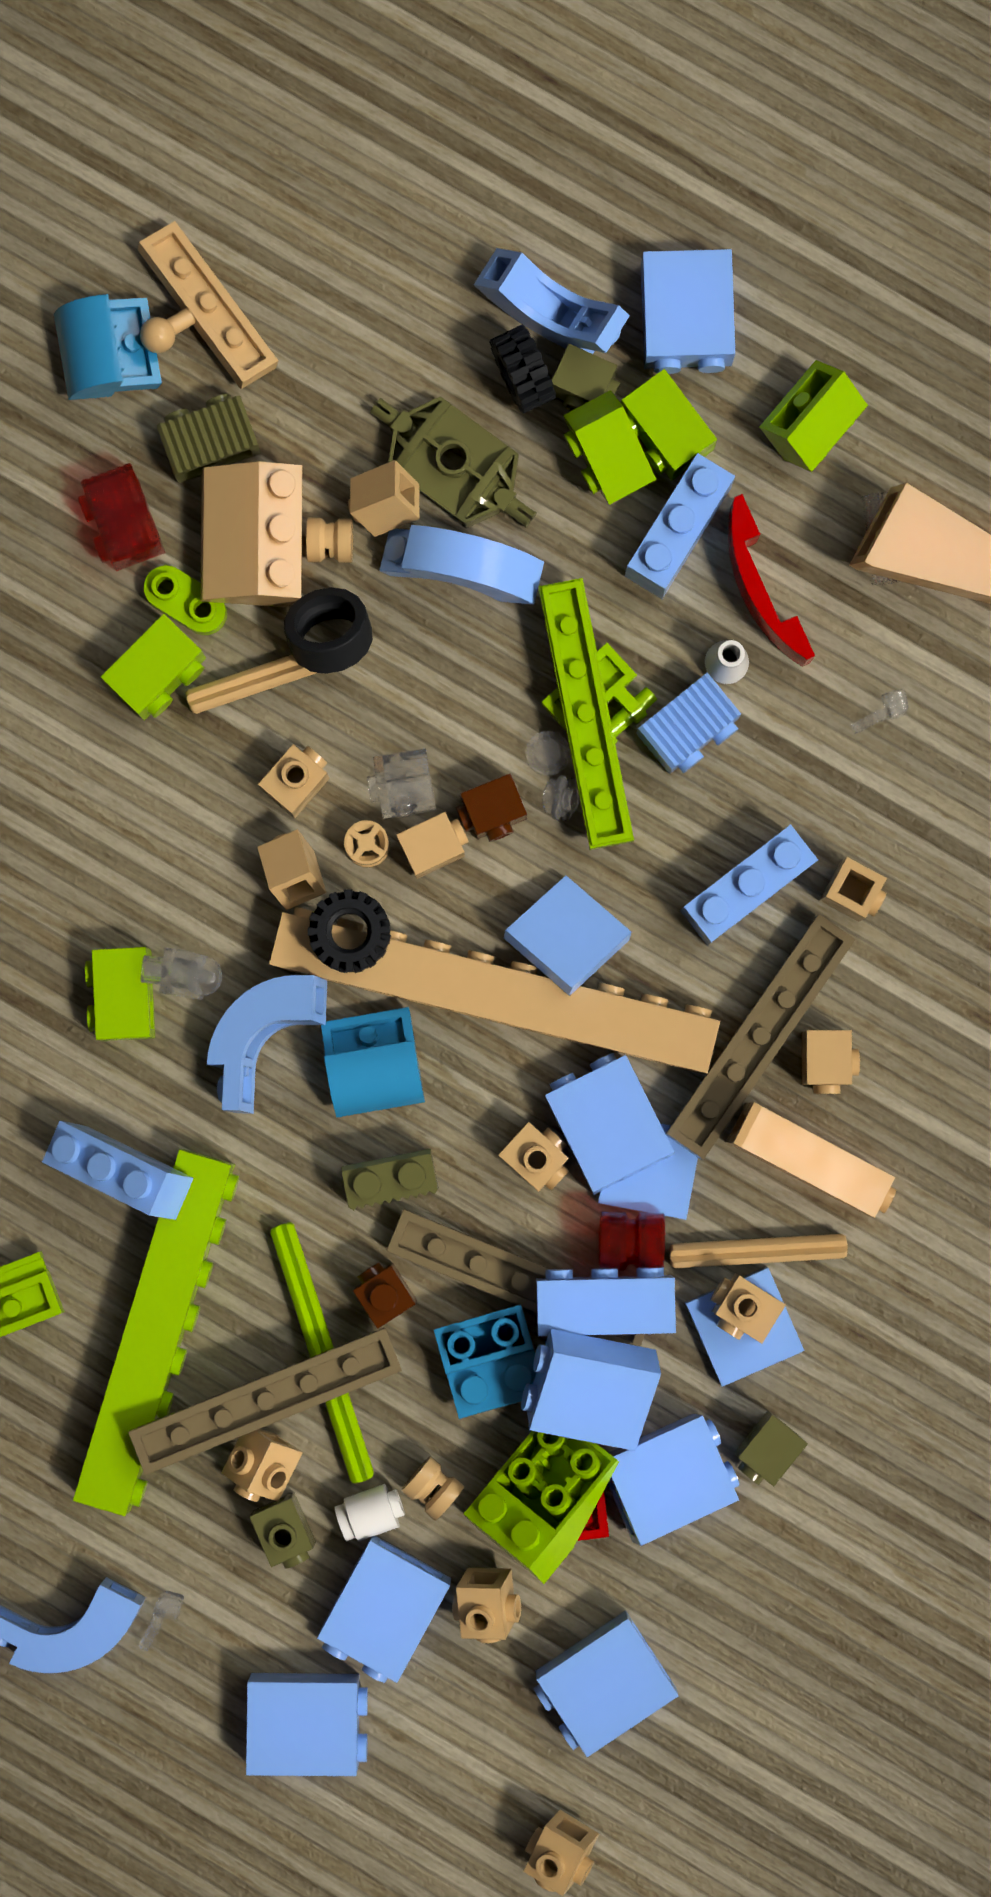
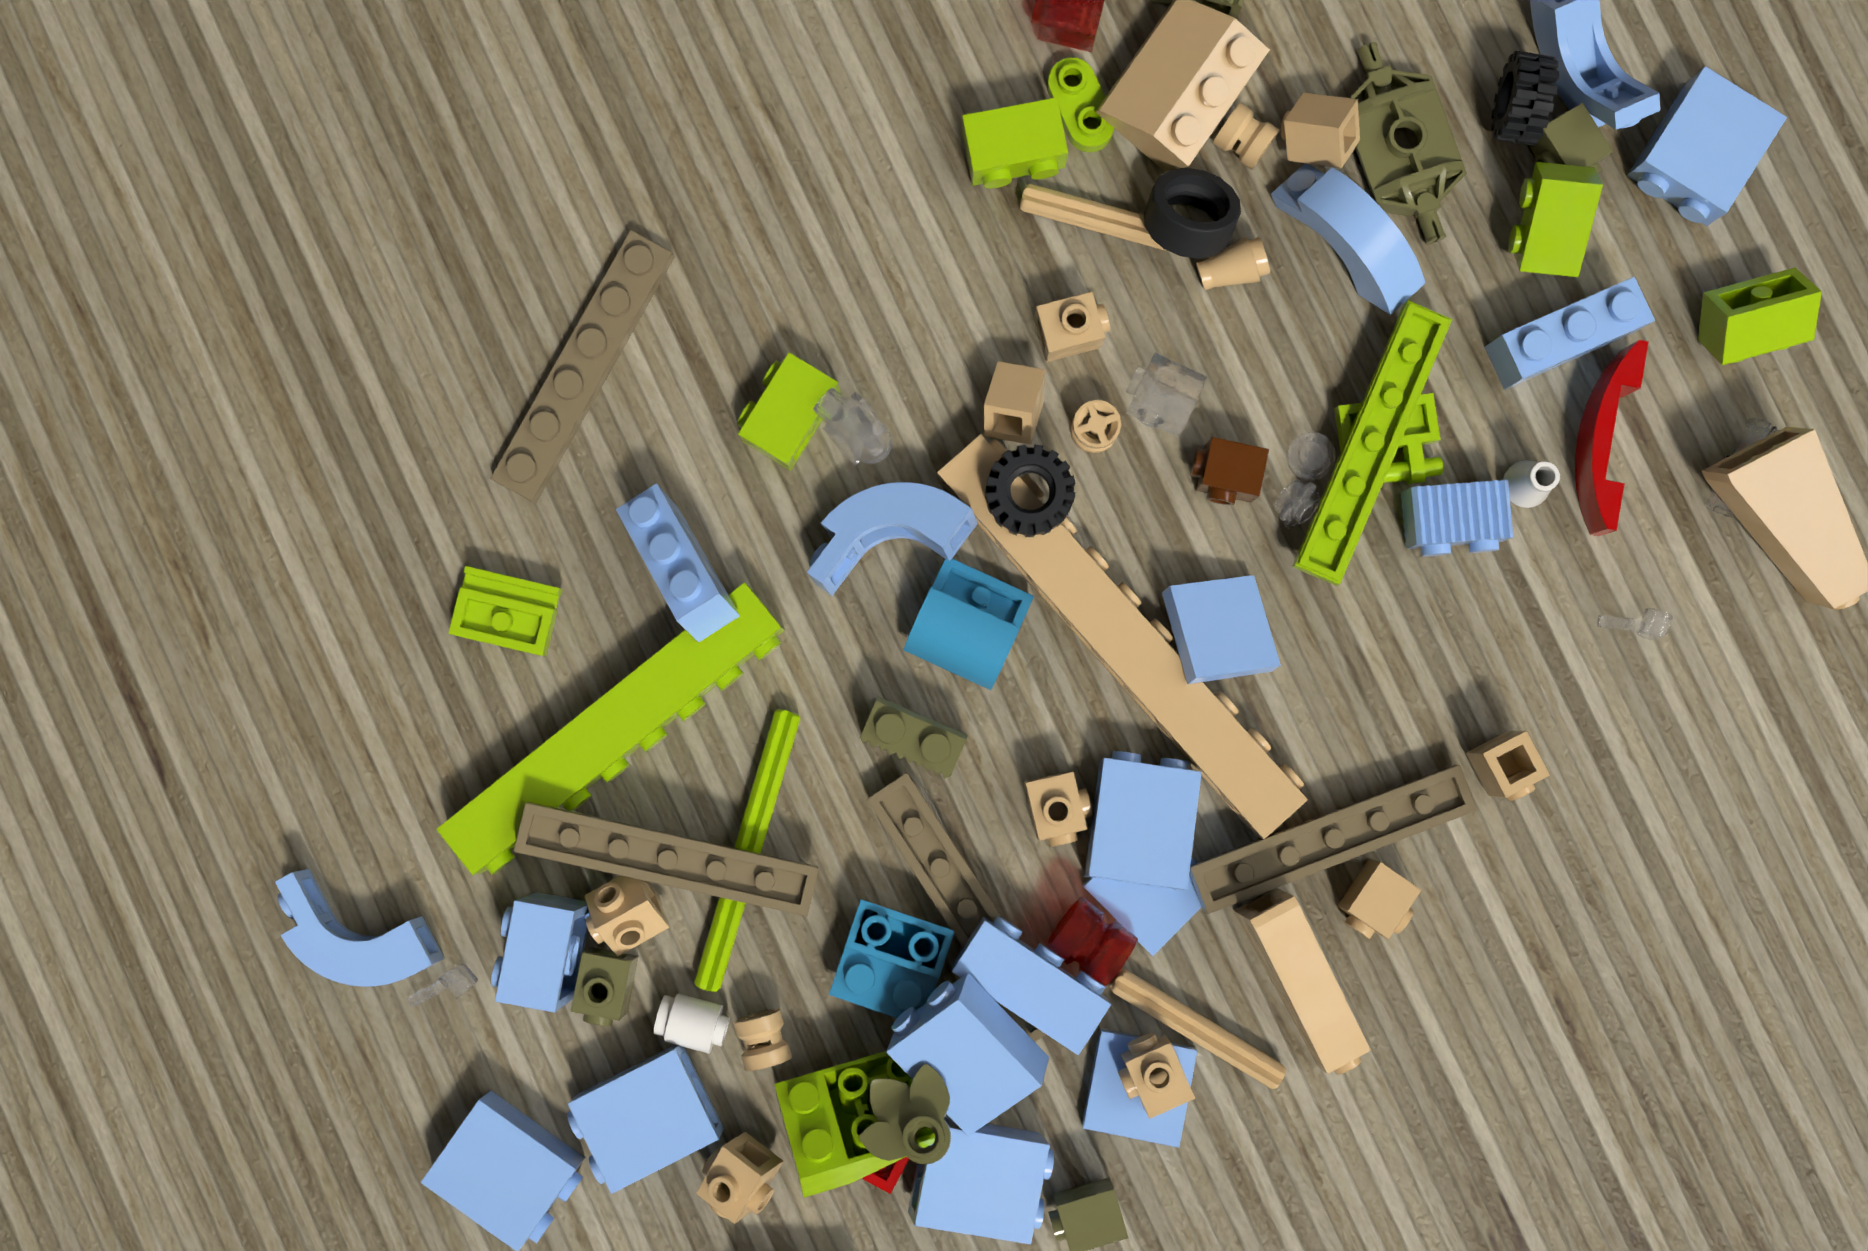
camera: 35 degrees right, 0 degrees up
(217, 1536) = (541, 951): none -> light blue brick
(383, 1293) = (838, 836): reddish brown brick -> none
(389, 645) = (1236, 264): none -> tan cone
(433, 844) = (1155, 466): tan brick -> none
(573, 1466) = (904, 1112): none -> olive plate
(667, 425) = (1622, 238): lime brick -> none
(749, 885) = (1414, 695): light blue brick -> none

